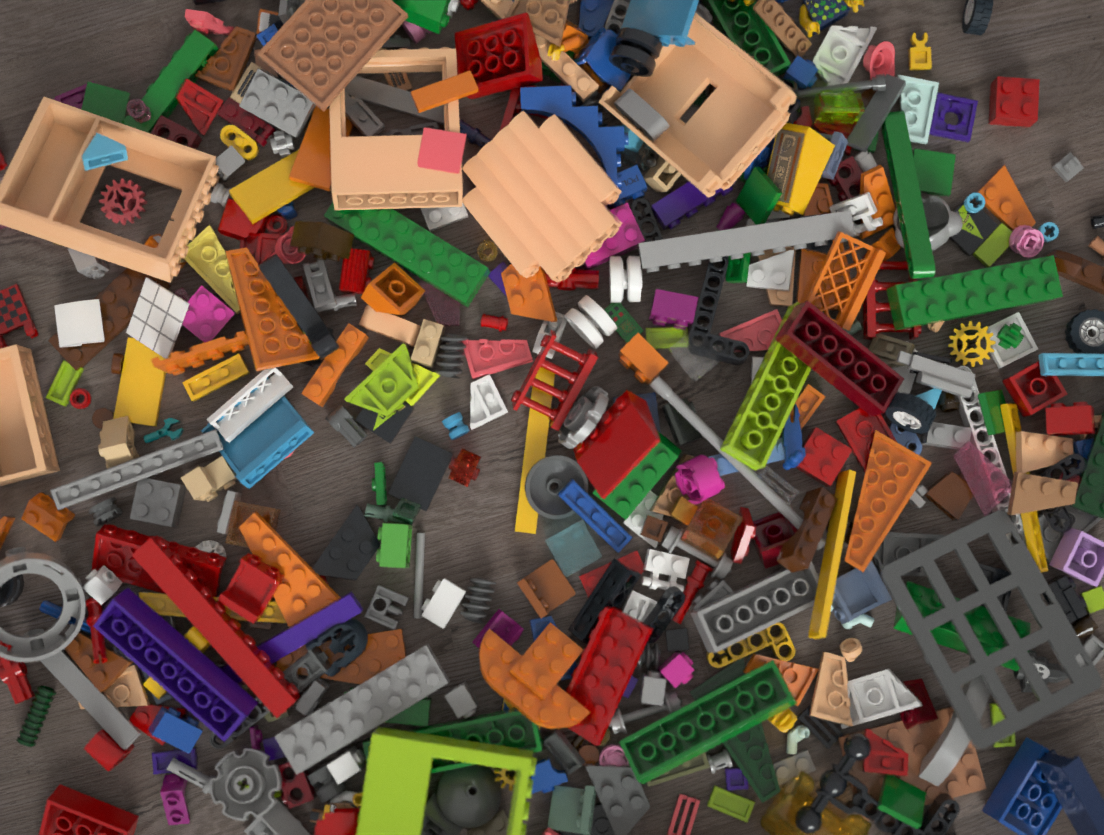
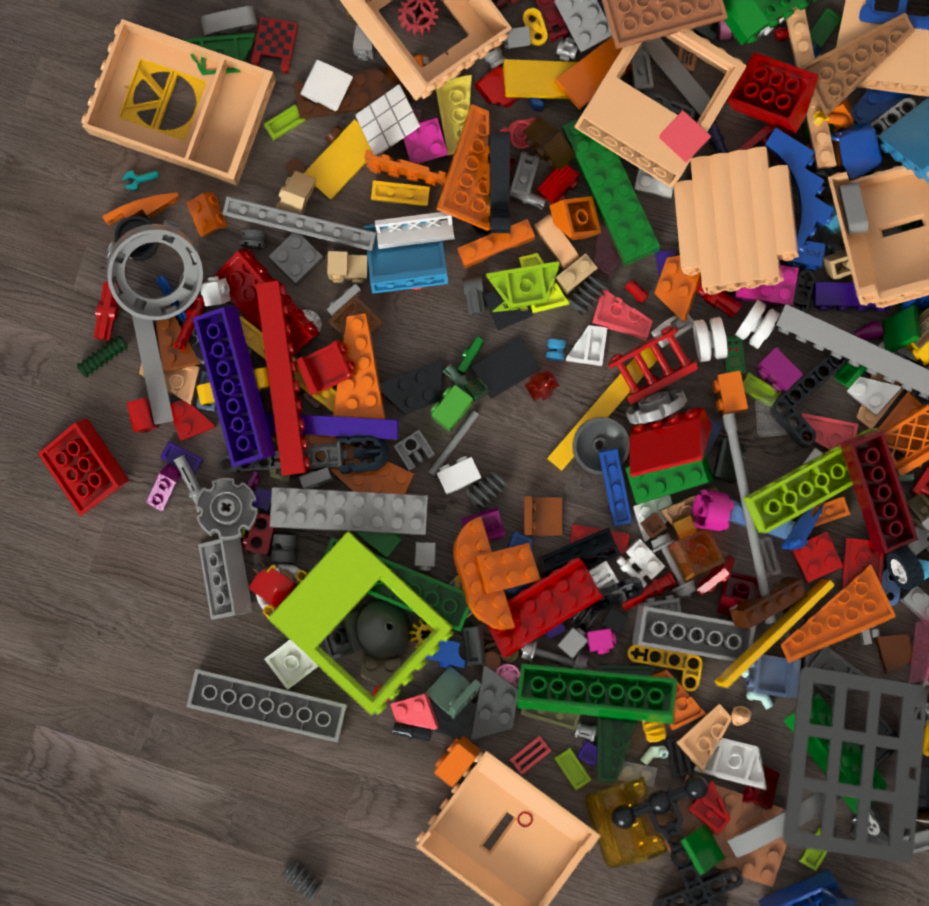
camera: 35 degrees right, 0 degrees up
(75, 395) = (286, 136): red plate -> none
(165, 431) = (334, 208): teal bar -> none
(175, 729) = (199, 434): blue brick -> none
(260, 245) = (499, 116): red wing -> none
(274, 219) = (521, 102): red plate -> none
(347, 764) = (309, 545): white brick -> none
(444, 91) = (716, 93): orange tile -> none
(484, 245) = (669, 228): clear yellow plate -> none
(573, 548) = (583, 500): clear light blue bracket -> none
(635, 52) = (880, 158): black wheel -> none

